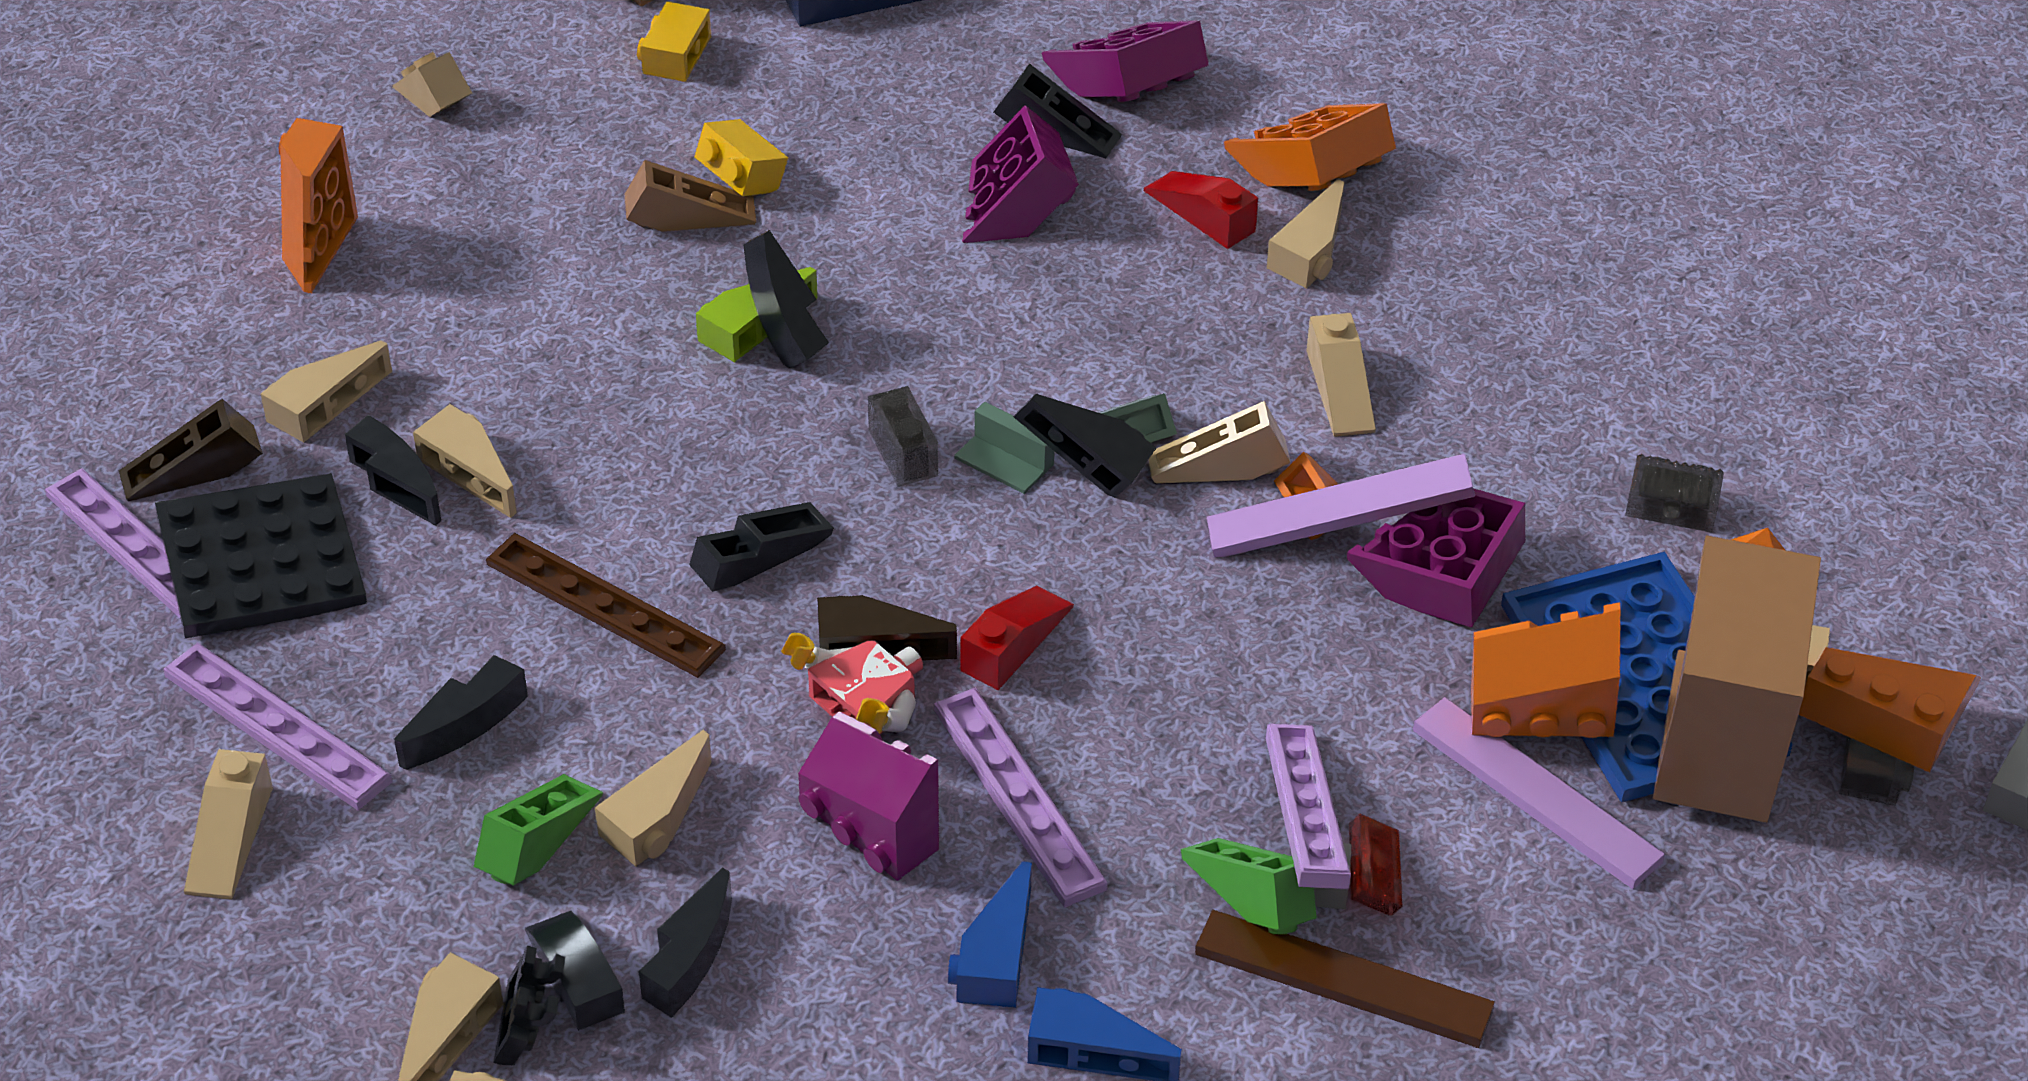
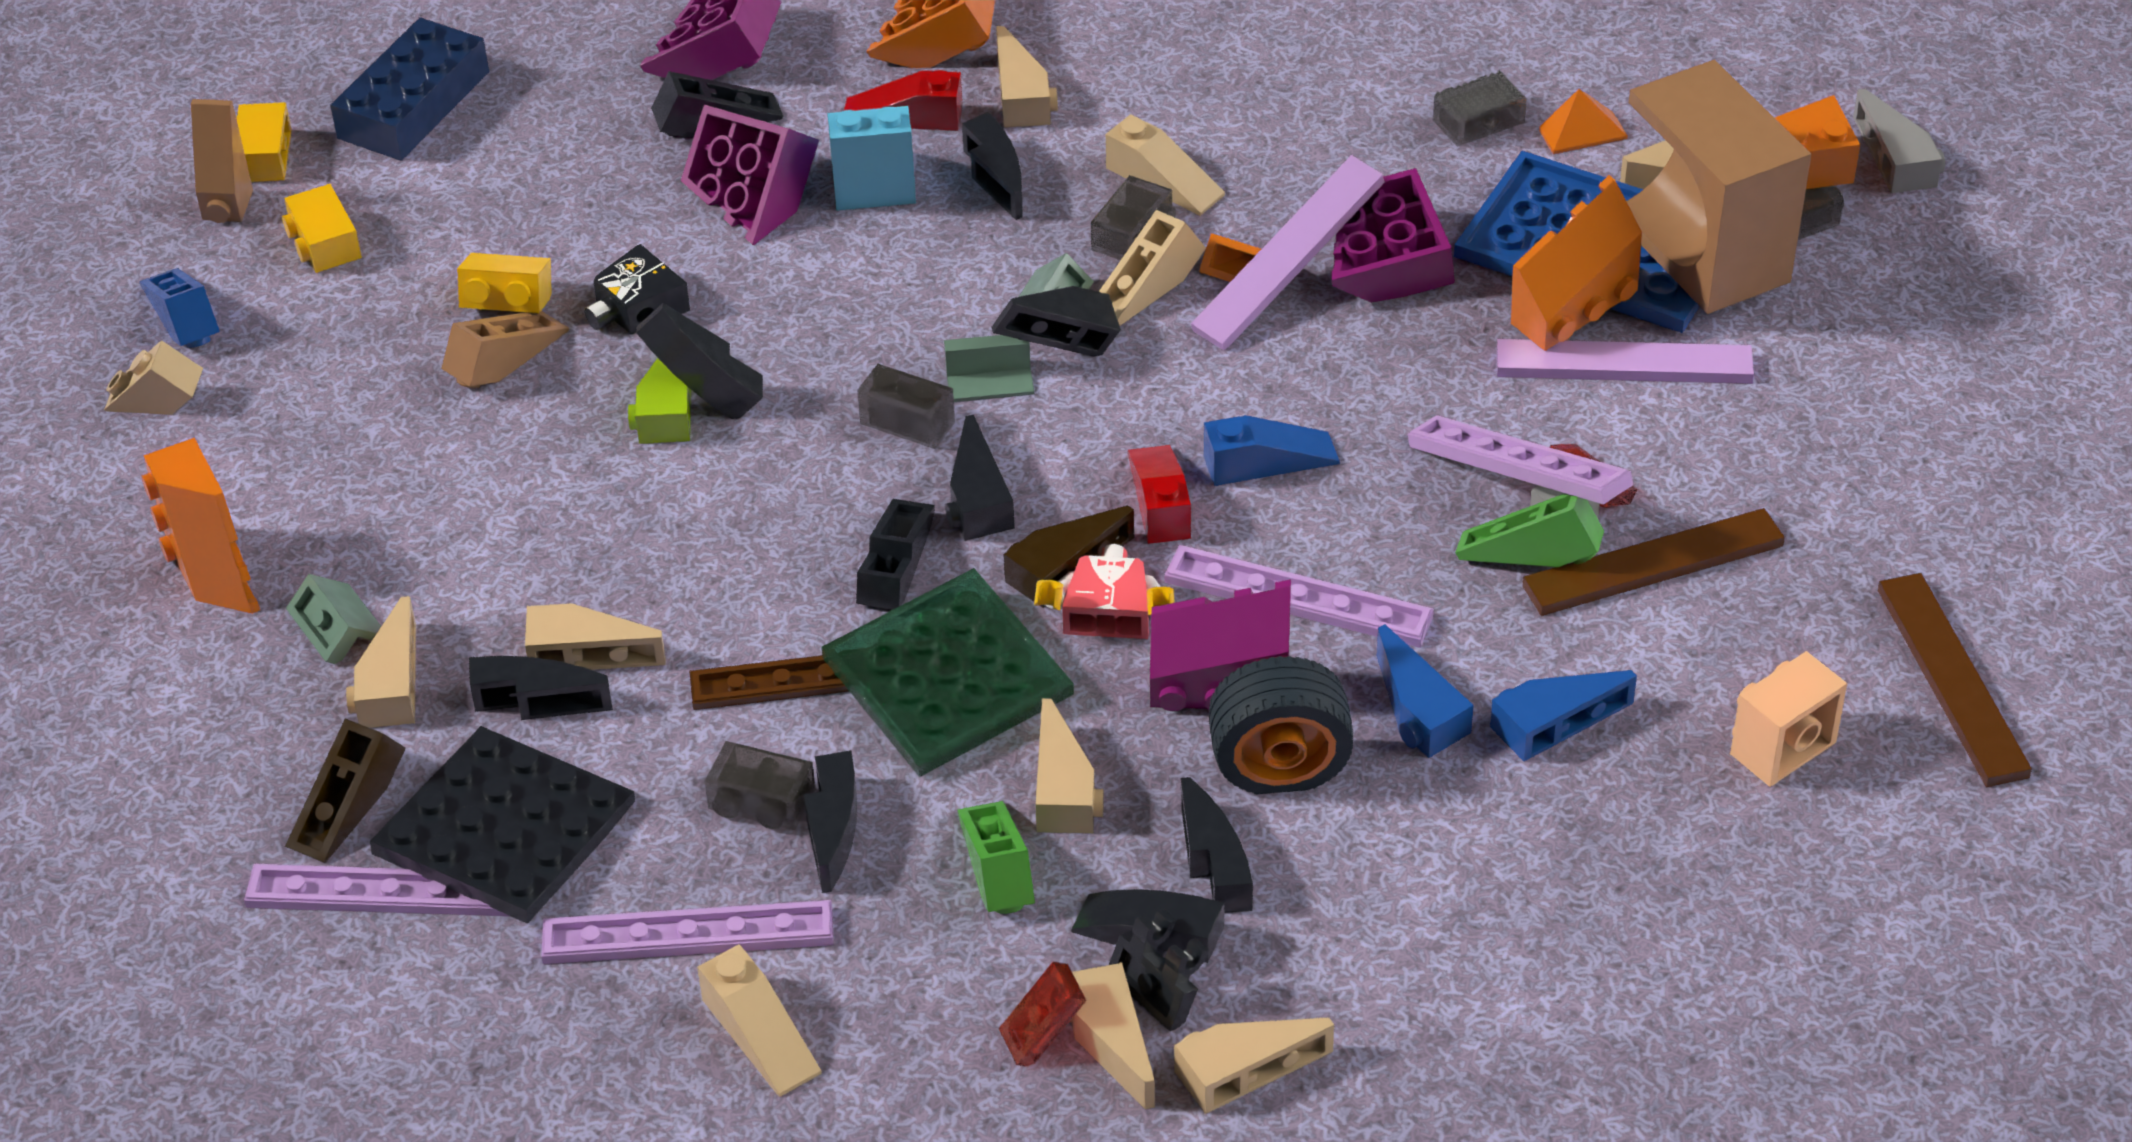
camera: 40 degrees left, 0 degrees up
(342, 324) = (331, 616): none -> sand green panel
(401, 970) = (1042, 1014): none -> clear red plate
(440, 646) = (759, 786): none -> clear smoke brick
(516, 41) = (181, 307): none -> blue slope
(678, 661) = (947, 671): none -> clear green plate
(823, 223) = (634, 289): none -> black torso
(833, 880) = (1280, 725): none -> black wheel
(878, 532) = (977, 489): none -> black slope
(1107, 224) = (872, 158): none -> medium azure slope
(1134, 655) = (1259, 448): none -> blue slope
(1213, 290) = (994, 162): none -> black slope
(1277, 386) = (1127, 214): none -> clear smoke brick

